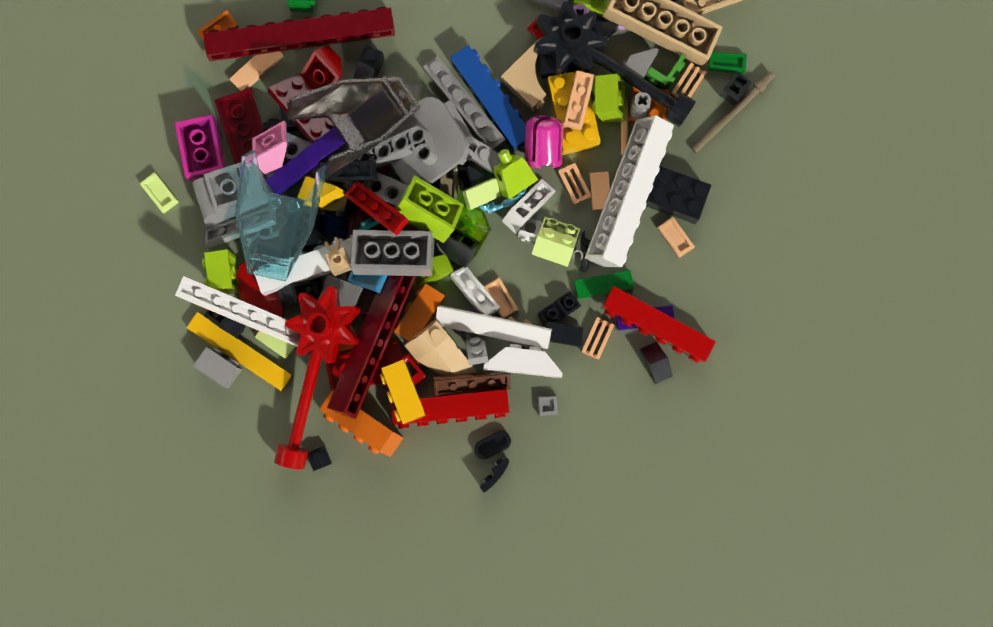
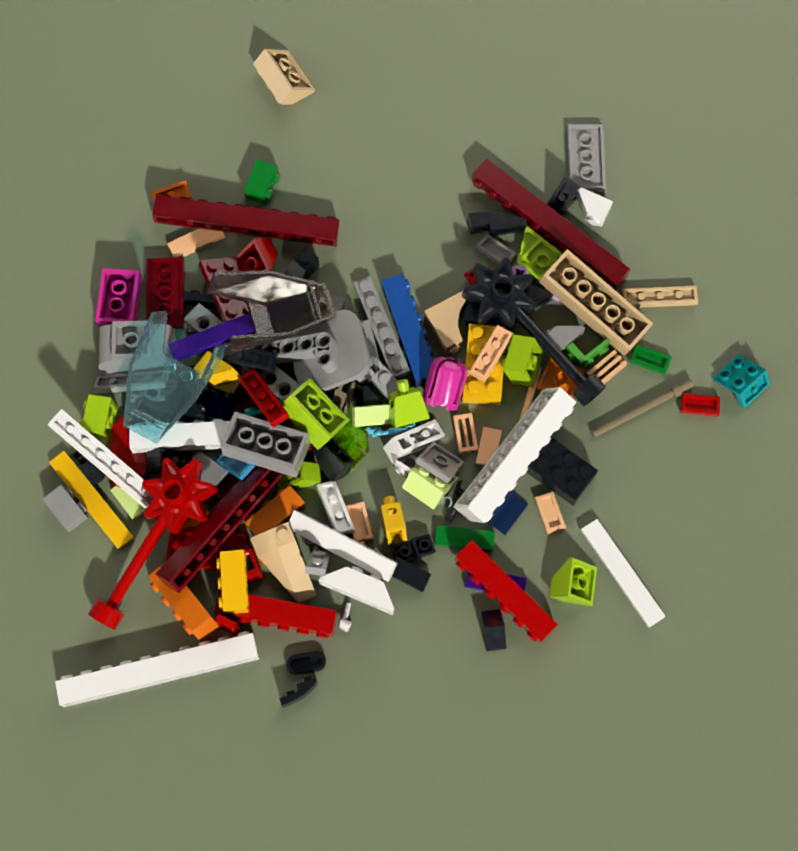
camera: 20 degrees right, 10 degrees down
(159, 192) = (66, 329): yellowish green tile -> none
(271, 148) = (183, 316): bright pink slope -> none
(319, 458) = (133, 625): black plate -> none
(337, 258) = (211, 435): tan brick -> none
(355, 494) = (157, 669): none -> white brick
(409, 433) = (227, 624): none -> red tile
(471, 383) = (304, 594): reddish brown tile -> none
(517, 398) = (344, 623): none -> white hand
(533, 288) = (393, 521): none -> yellow torso
(547, 405) = (373, 640): light grey tile -> none
(560, 219) = (440, 462): none -> light grey tile
(591, 353) = (452, 576): light nougat tile -> none
(638, 249) = (507, 512): none -> dark blue panel
(640, 105) = (549, 374): light grey axle -> none
(718, 297) = (574, 582): none -> lime slope
(735, 88) = (650, 385): black slope -> none
(759, 274) = (623, 573): none -> white tile
(785, 93) = (700, 404): none -> red tile
(819, 56) = (743, 379): none -> teal bracket

